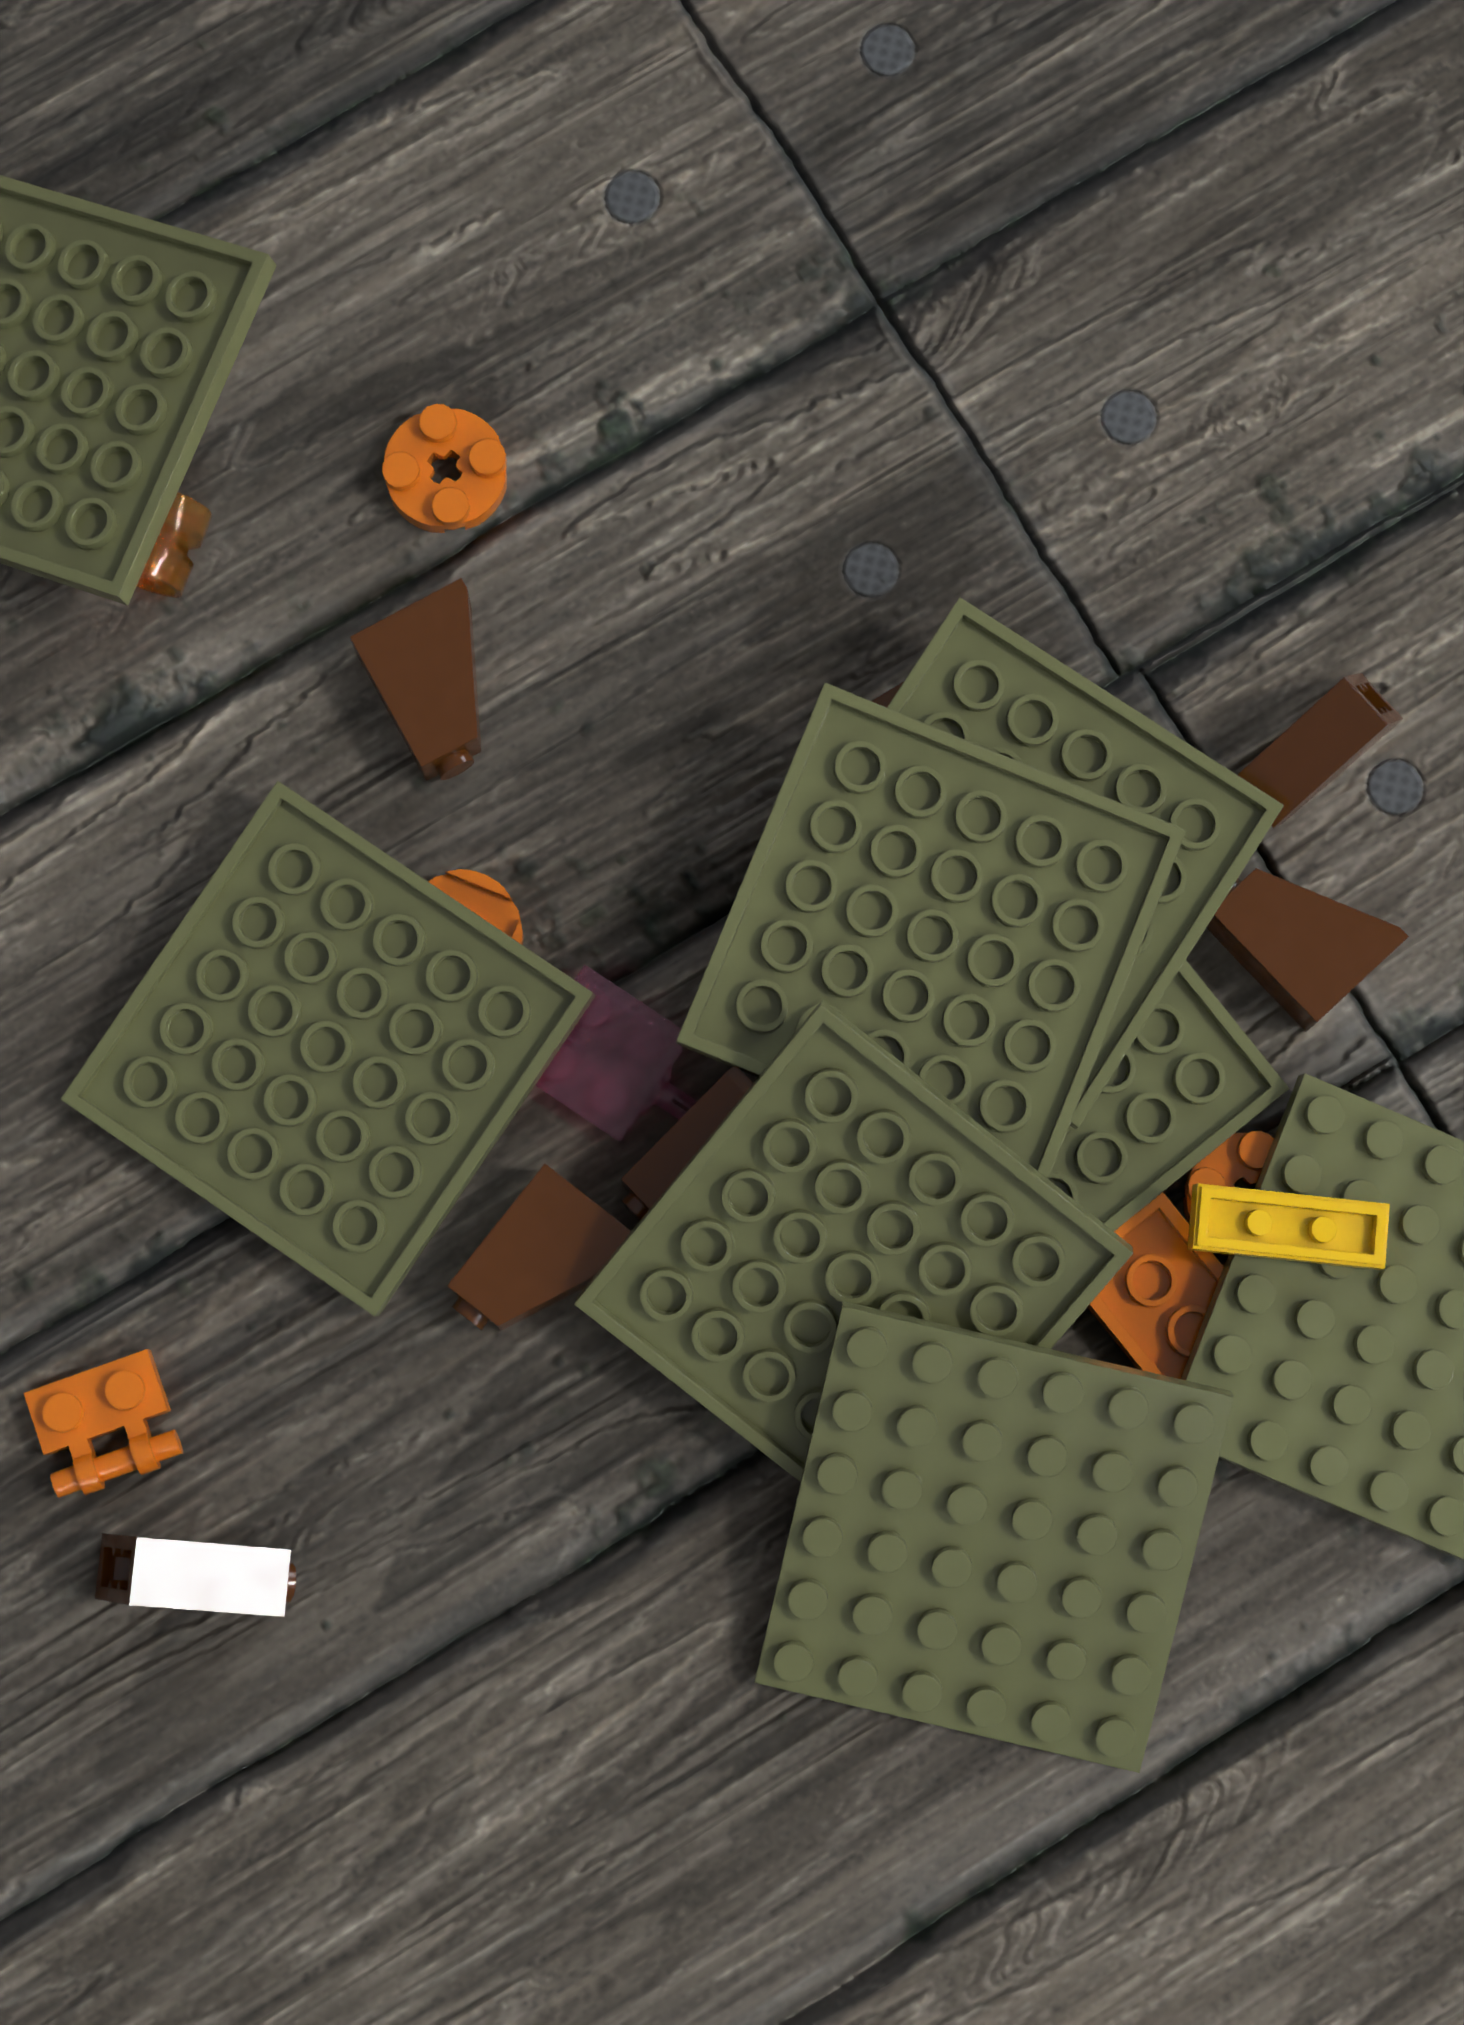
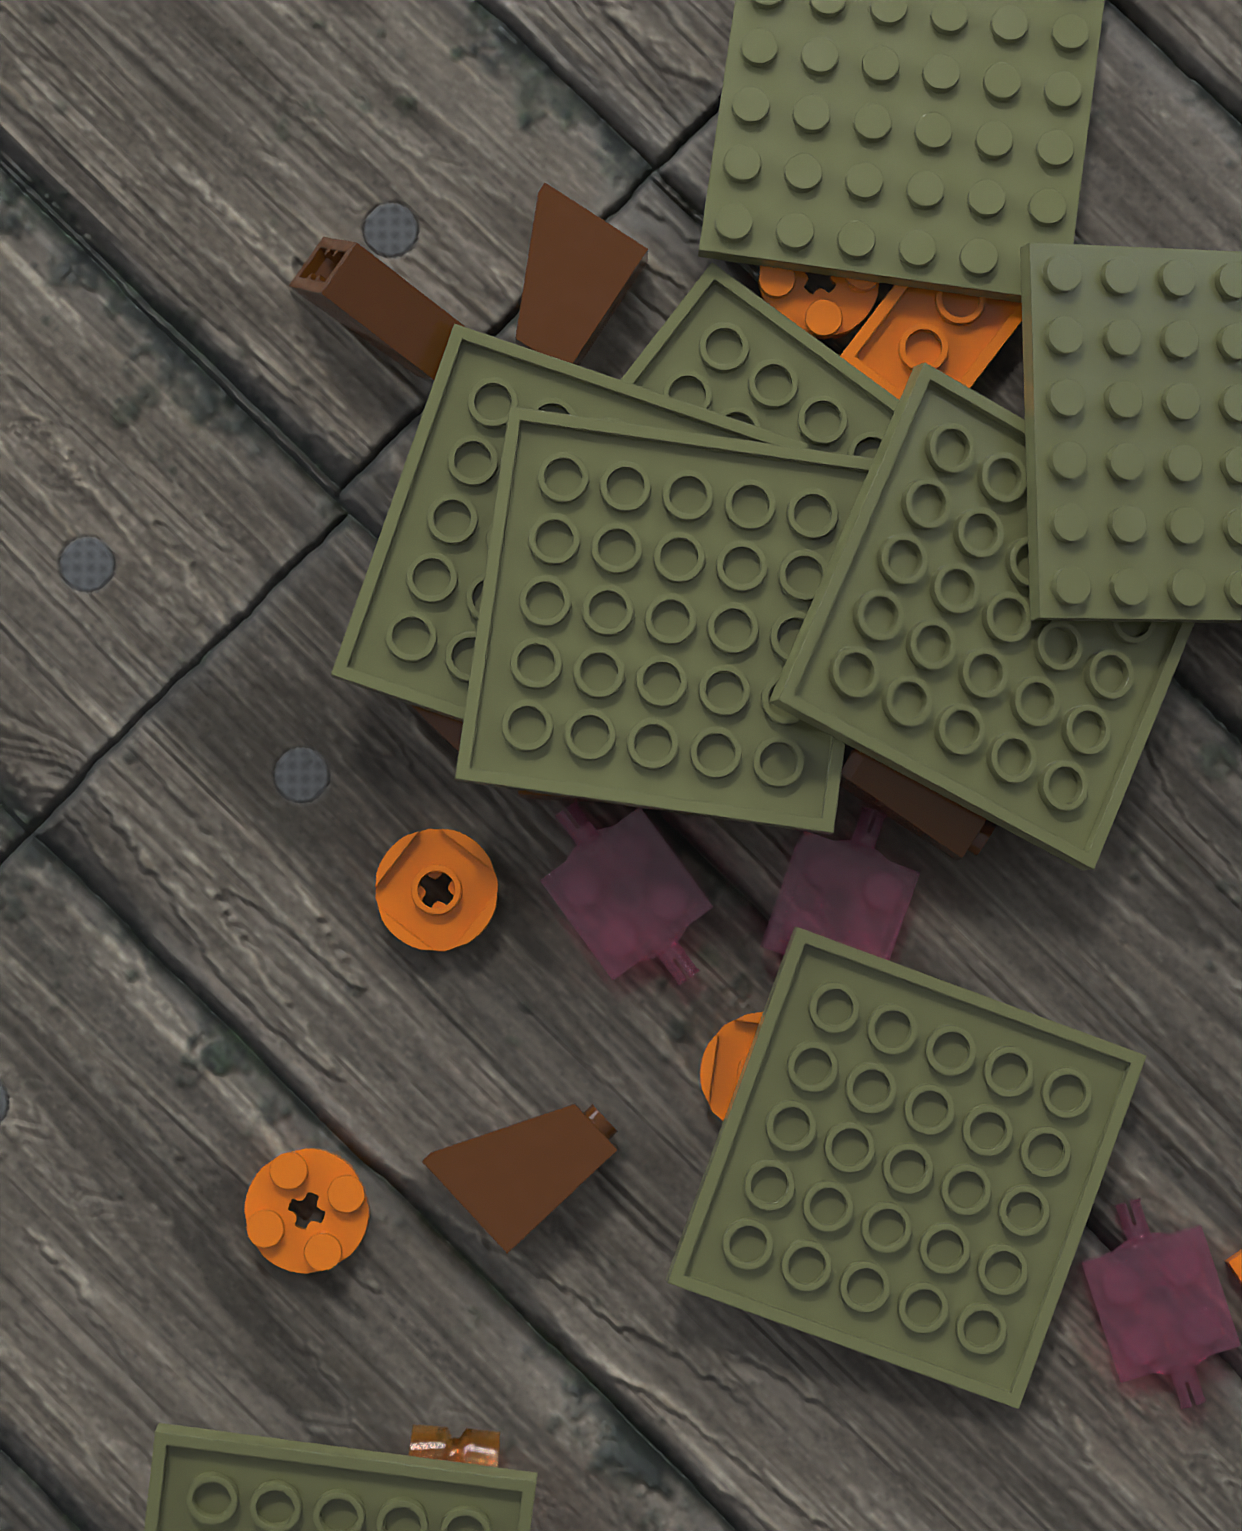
camera: 100 degrees left, 5 degrees up
(125, 1271) = (1160, 1303): none -> clear pink plate
(536, 1253) = (1046, 918): reddish brown slope -> none
(671, 848) = (627, 893): none -> clear pink plate
(726, 630) = (401, 895): none -> orange plate
(1288, 1226) = (850, 231): yellow tile -> none

